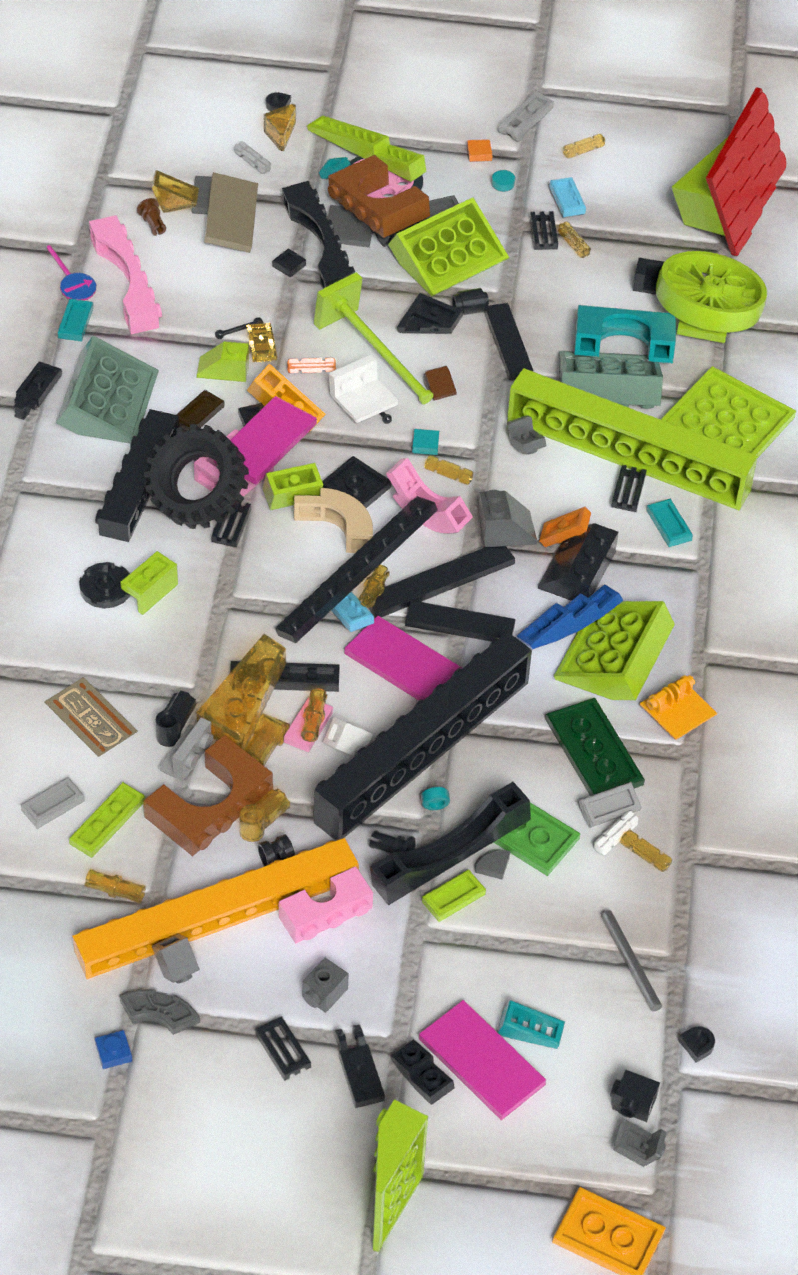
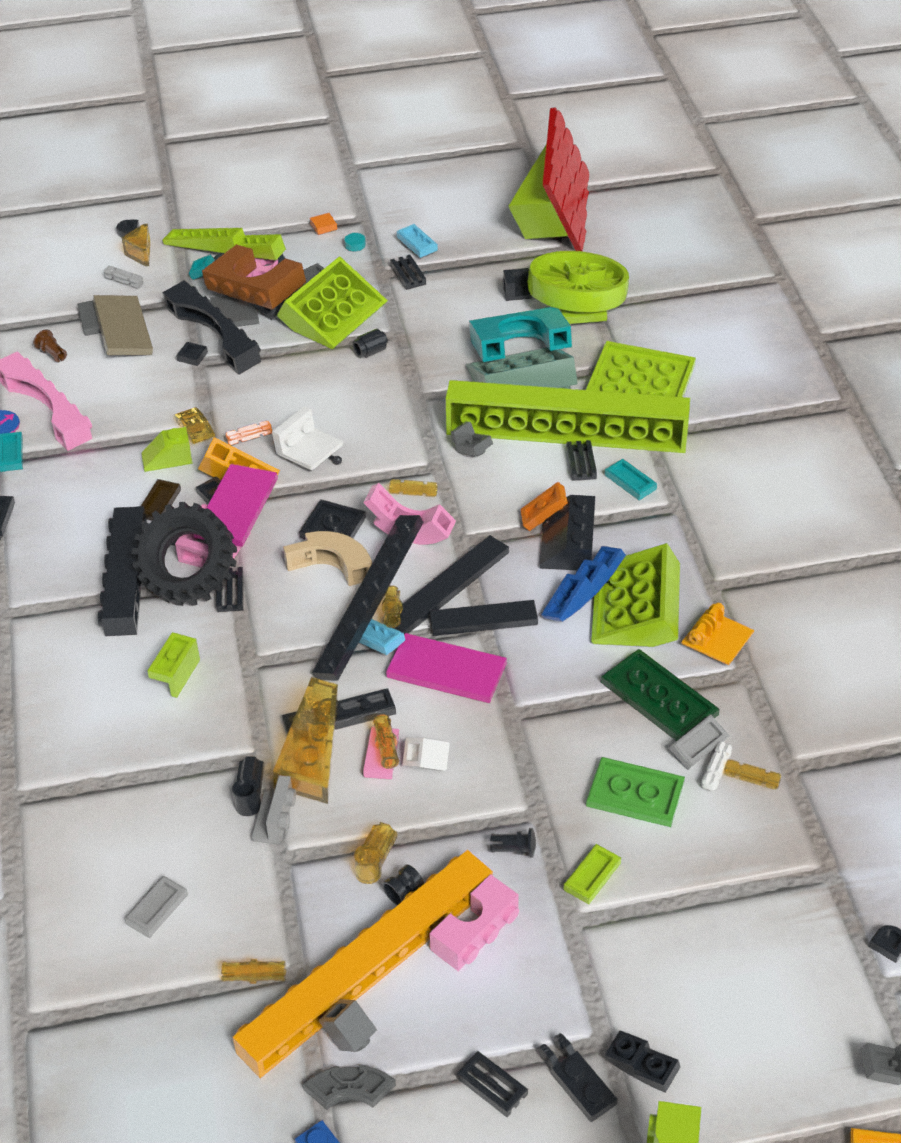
camera: 15 degrees left, 5 degrees down
(90, 717) = (162, 810): sticker -> none
(102, 585) = (128, 680): black tile -> none
(107, 393) = (65, 506): sand green slope -> none
(107, 820) = (218, 907): lime tile -> none
(173, 193) = (63, 321): clear yellow slope -> none
(197, 826) = (313, 884): dark orange arch -> none
(219, 334) = (153, 428): black hinge -> none
(267, 735) = (346, 776): clear yellow piece -> none
(283, 484) = (268, 541): lime brick -> none
(325, 985) = (508, 1004): dark grey brick -> none
(342, 301) = (255, 370): lime tile -> none
(410, 869) = (543, 860): black arch -> none
(421, 736) = (496, 734): black brick -> none
(425, 441) = (381, 469): teal tile -> none
(429, 317) = (339, 364): black wing -> none
(435, 798) = (535, 785): teal tile -> none
(439, 383) = (372, 417): reddish brown slope -> none
(482, 1060) = (695, 1029): dark pink tile -> none
(493, 864) = (617, 831): dark grey tile -> none
(504, 520) = (484, 516): dark grey slope -> none
(507, 339) = (418, 367): black tile -> none
(526, 116) = (352, 187): light grey plate -> none
(528, 1034) = (705, 981): teal slope -> none
(574, 239) = (438, 272): clear yellow axle -> none
(584, 145) = (412, 198): clear yellow axle -> none
(631, 961) = (789, 883): flat silver bar -> none
(634, 1095) = (860, 1015): black brick -> none

